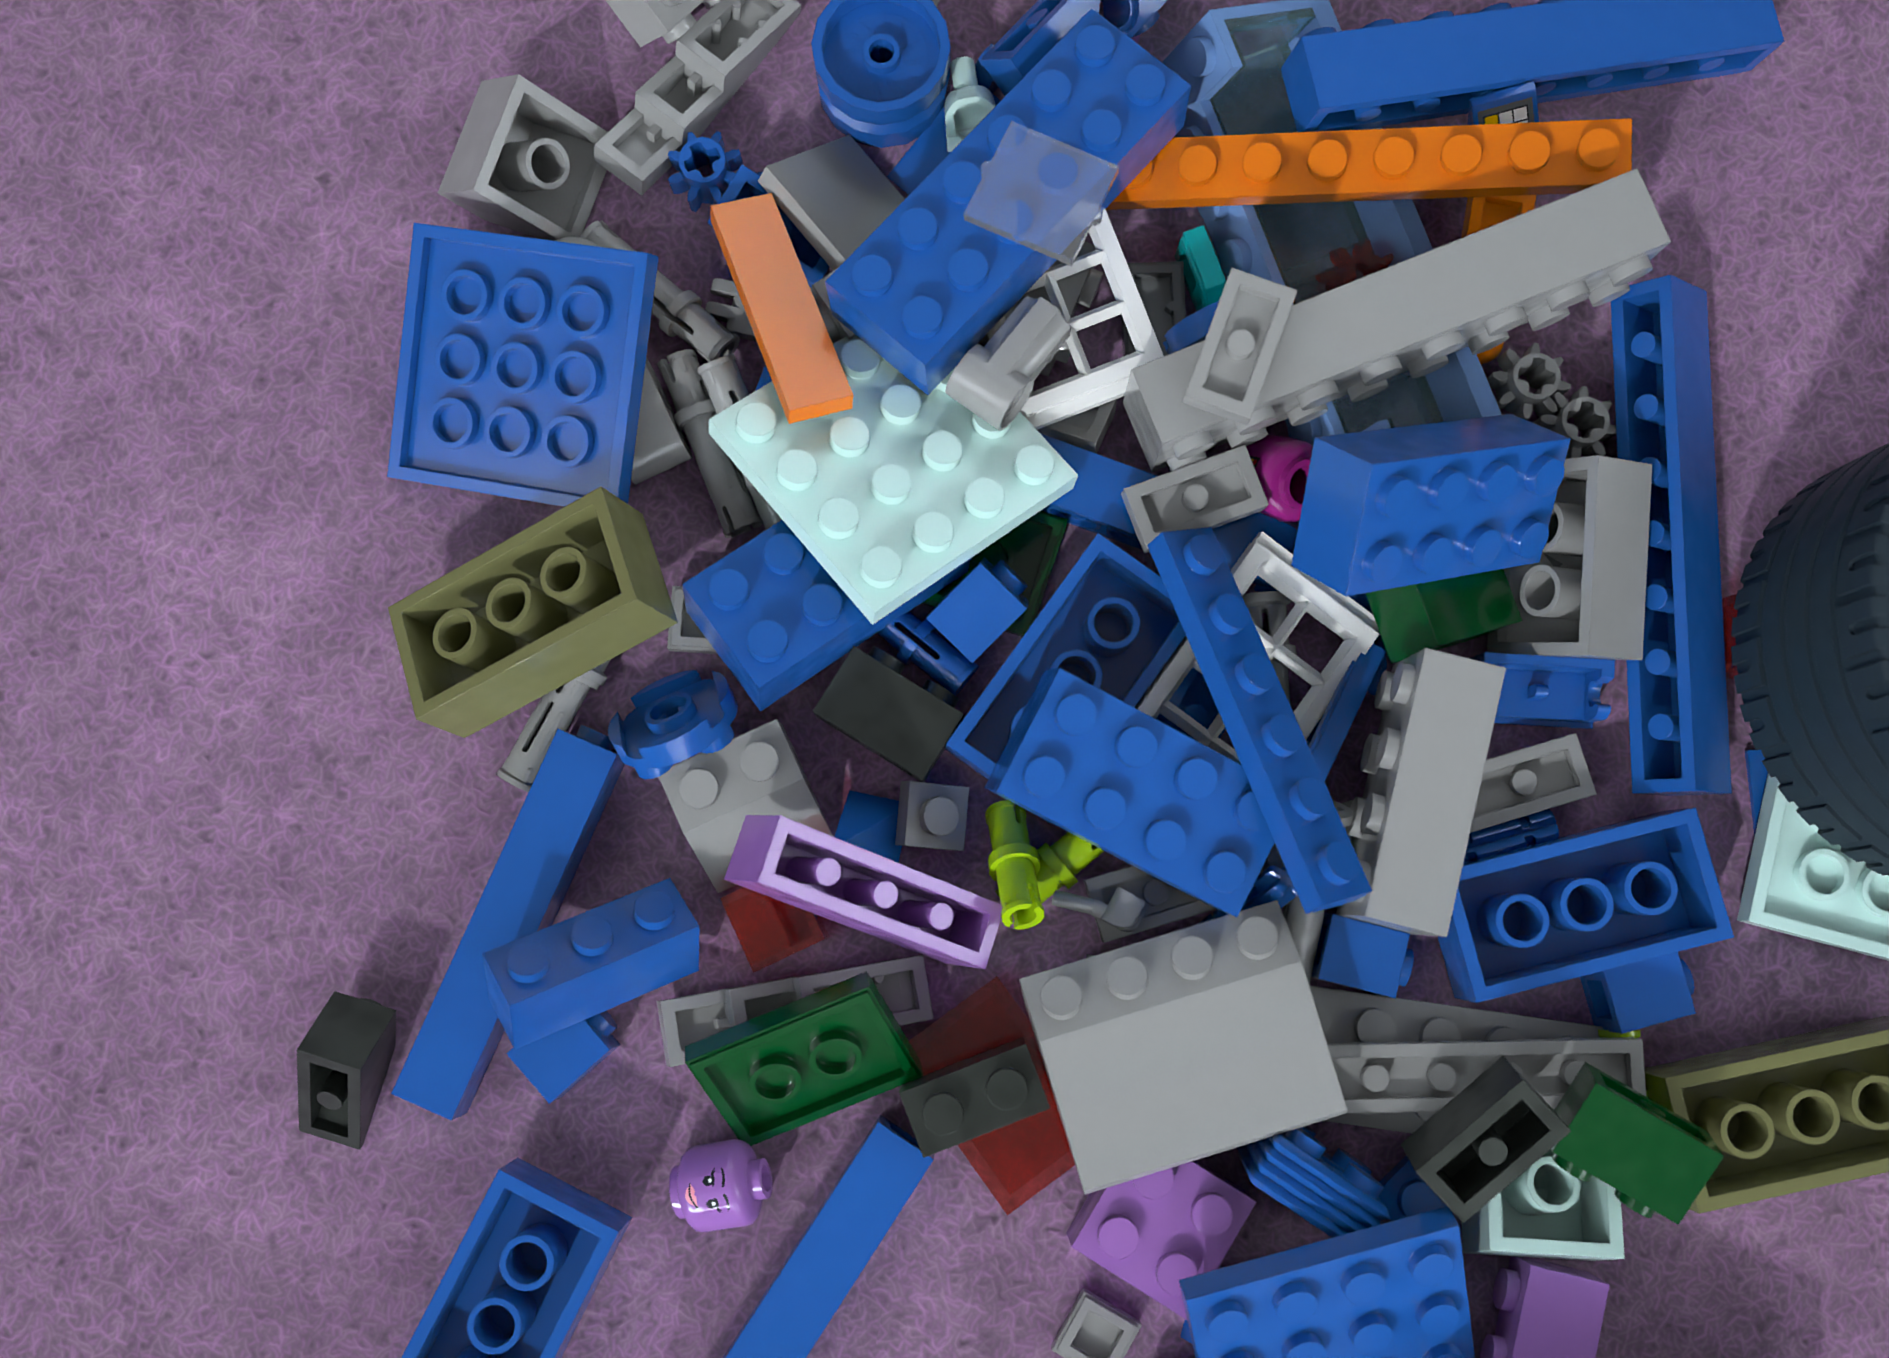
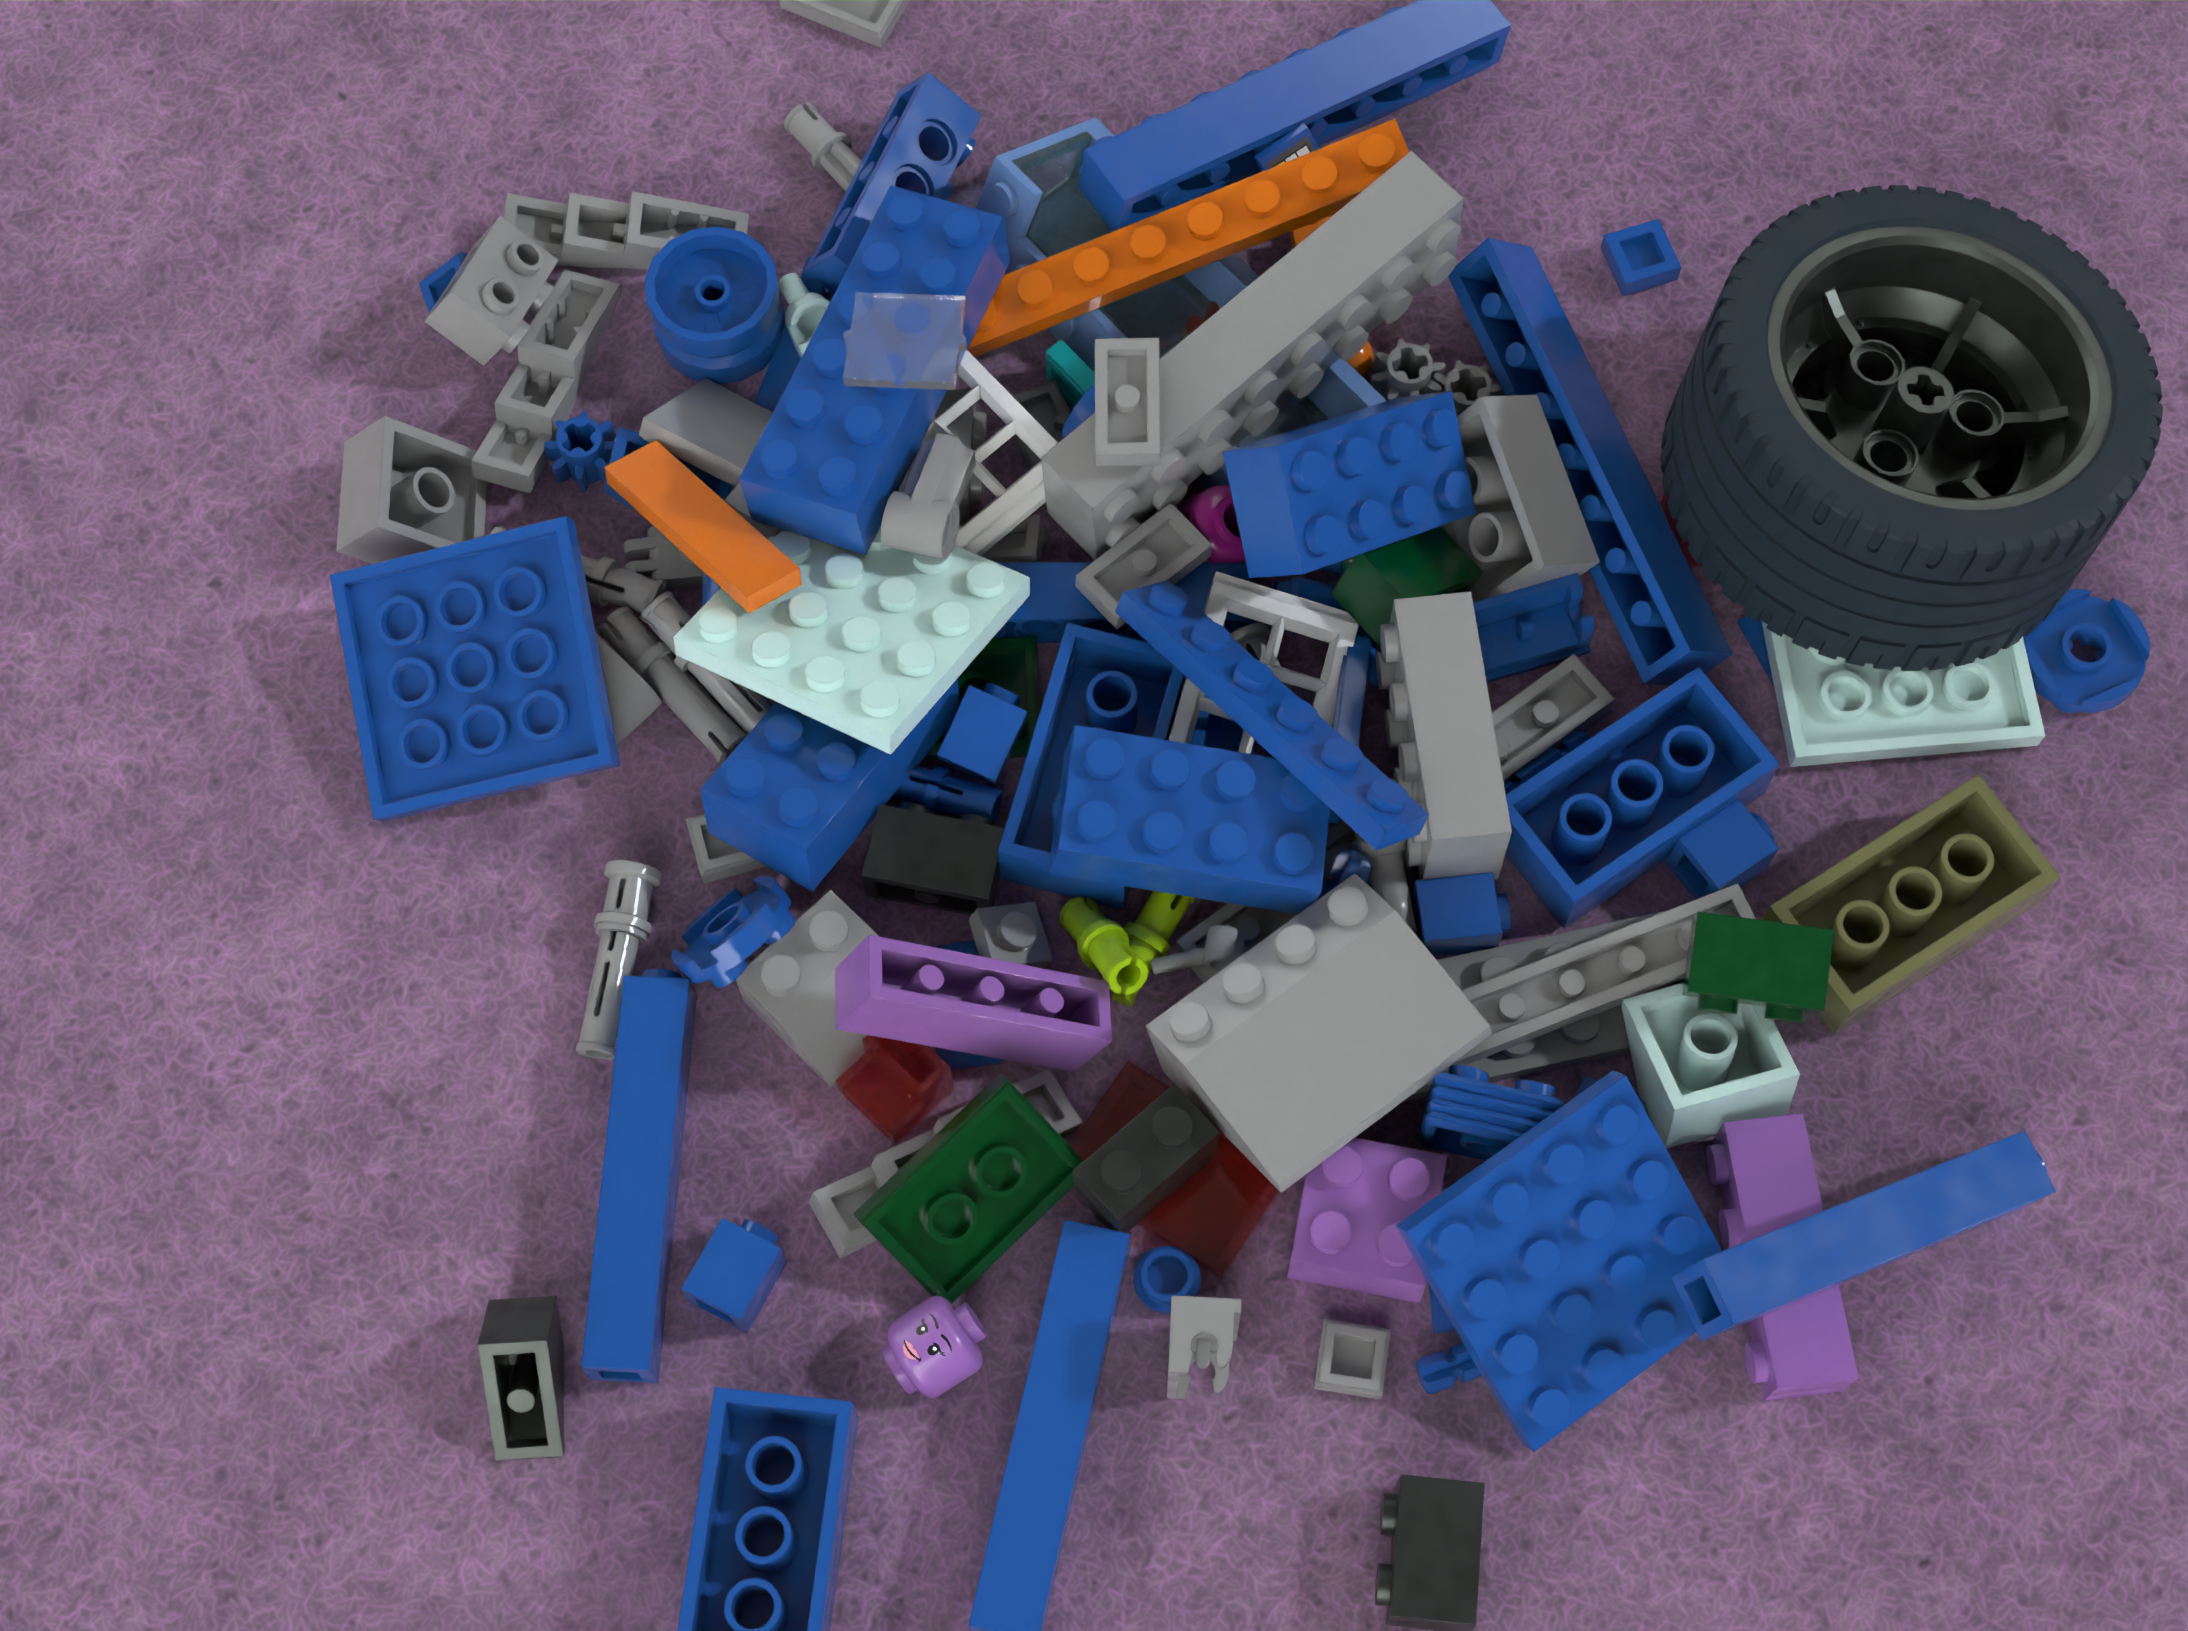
camera: 20 degrees left, 15 degrees down
(531, 614) = (563, 876): olive brick -> none
(591, 962) = (735, 1167): blue brick -> none
(955, 1197) = (1165, 1273): none -> blue plate
(964, 1284) = (1204, 1333): none -> light grey hinge
(1484, 1139) = (1623, 1002): pearl dark grey brick -> none
(1809, 337) = (1640, 257): none -> blue plate

